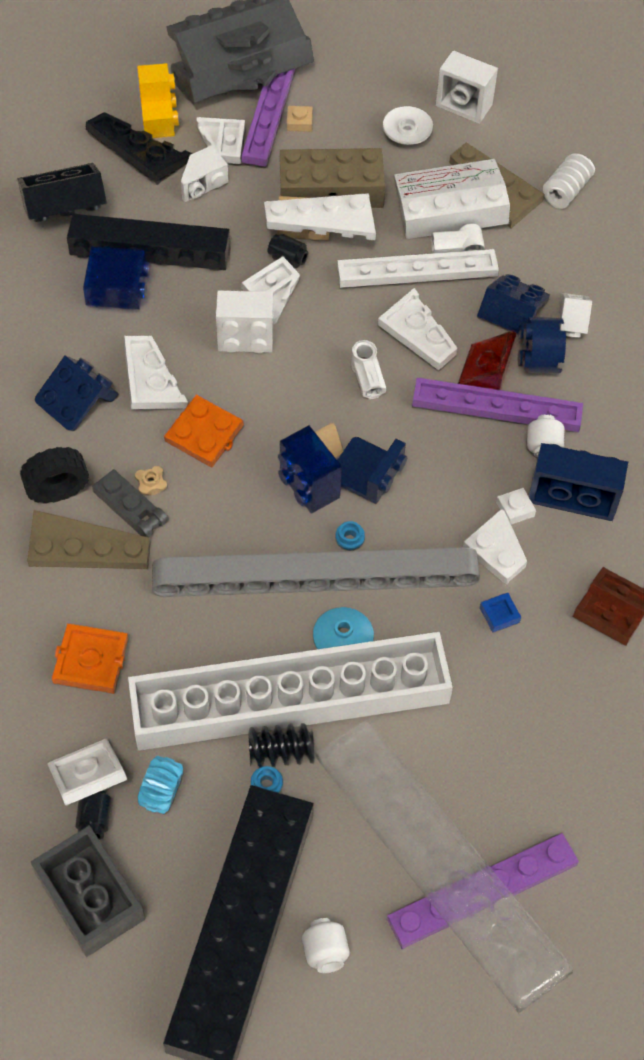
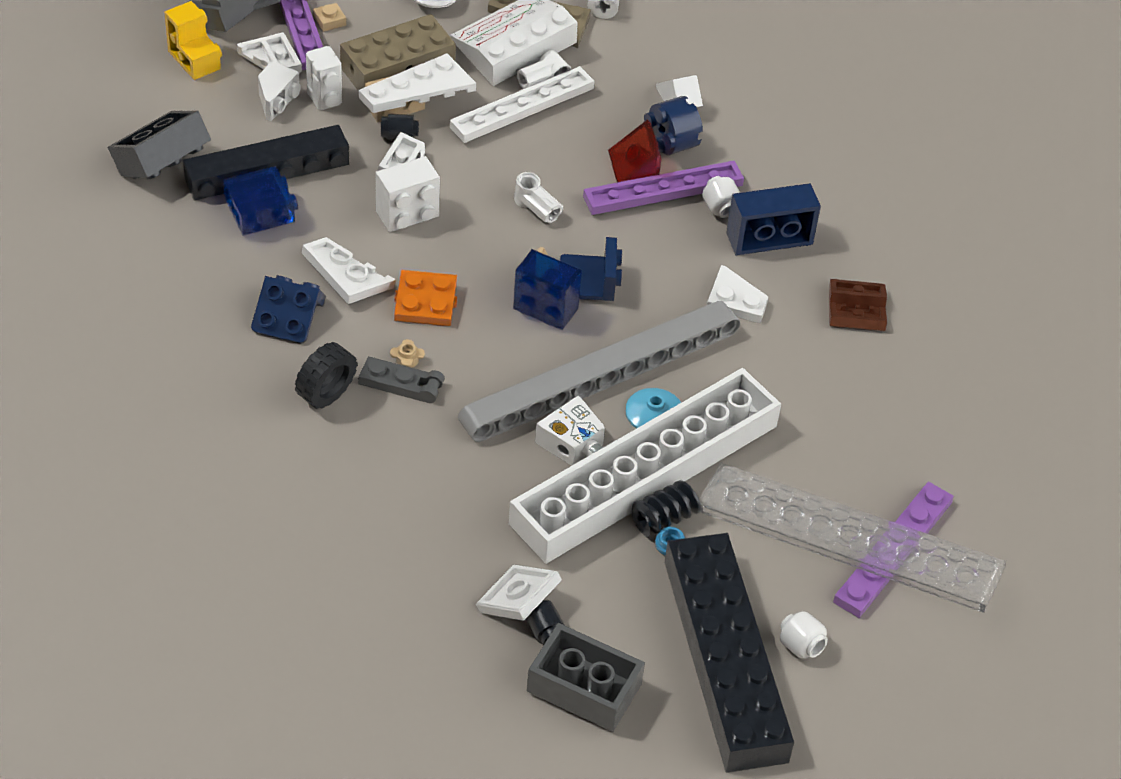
camera: 30 degrees left, 10 degrees down
(79, 544) = (382, 427): dark tan wing -> none
(90, 658) = (456, 509): orange plate -> none
(137, 147) = (194, 87): black wing -> none
(160, 784) = (589, 574): medium azure gear -> none
(244, 625) = (571, 432): none -> white torso
(245, 178) = (324, 78): none -> white brick
(350, 528) = (609, 331): dark azure plate -> none
(416, 329) = (554, 153): white wing -> none
(500, 612) = (772, 342): blue plate -> none
(511, 302) = (622, 105): dark blue bracket -> none
(516, 505) = (731, 258): white plate -> none

